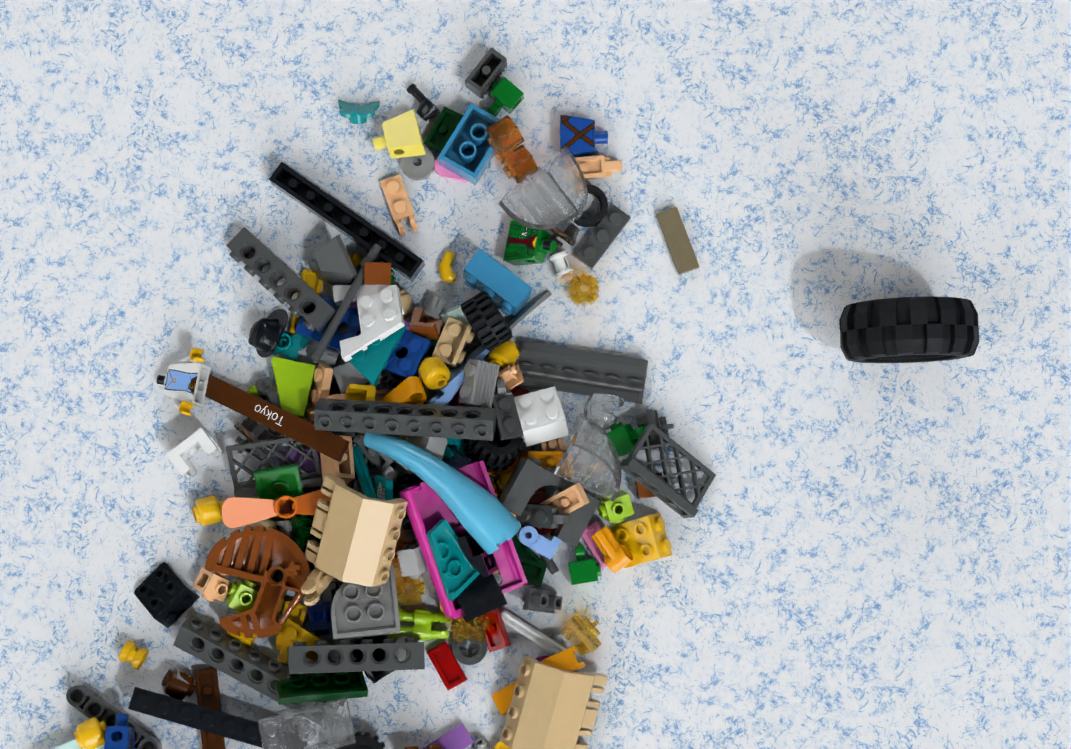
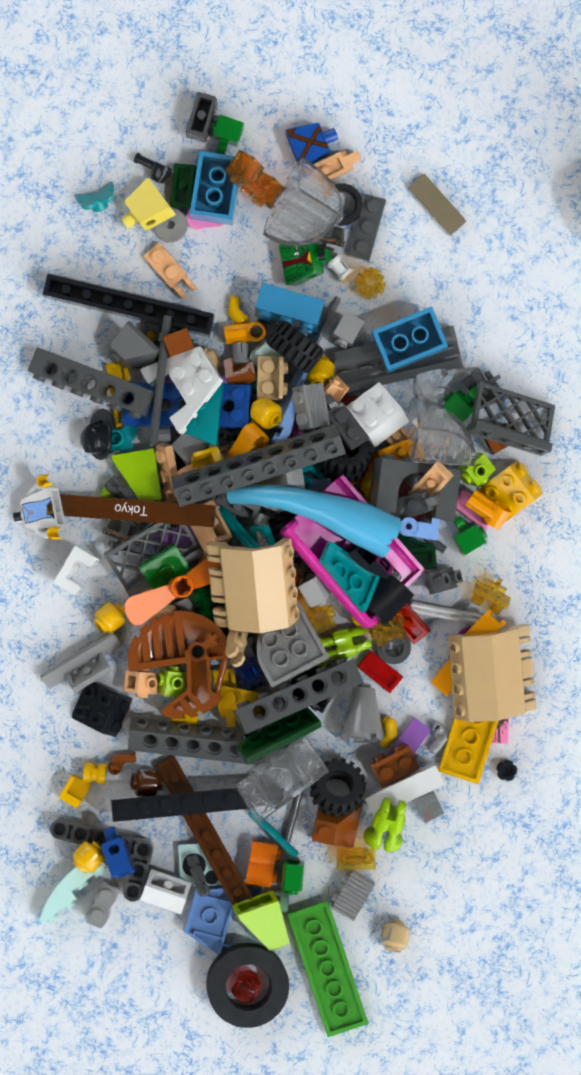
camera: 25 degrees left, 5 degrees up
(106, 665) = (74, 791): none -> yellow panel
(161, 652) = (119, 760): none -> dark orange arm
(165, 547) = (83, 666): none -> light grey bracket
(412, 703) = (363, 717): none -> light grey cone
(434, 727) = (390, 731): none -> yellow arm
(445, 289) = (243, 332): none -> light orange piece
(544, 325) = (347, 330): none -> light grey brick
(599, 357) = (409, 340): none -> dark azure brick

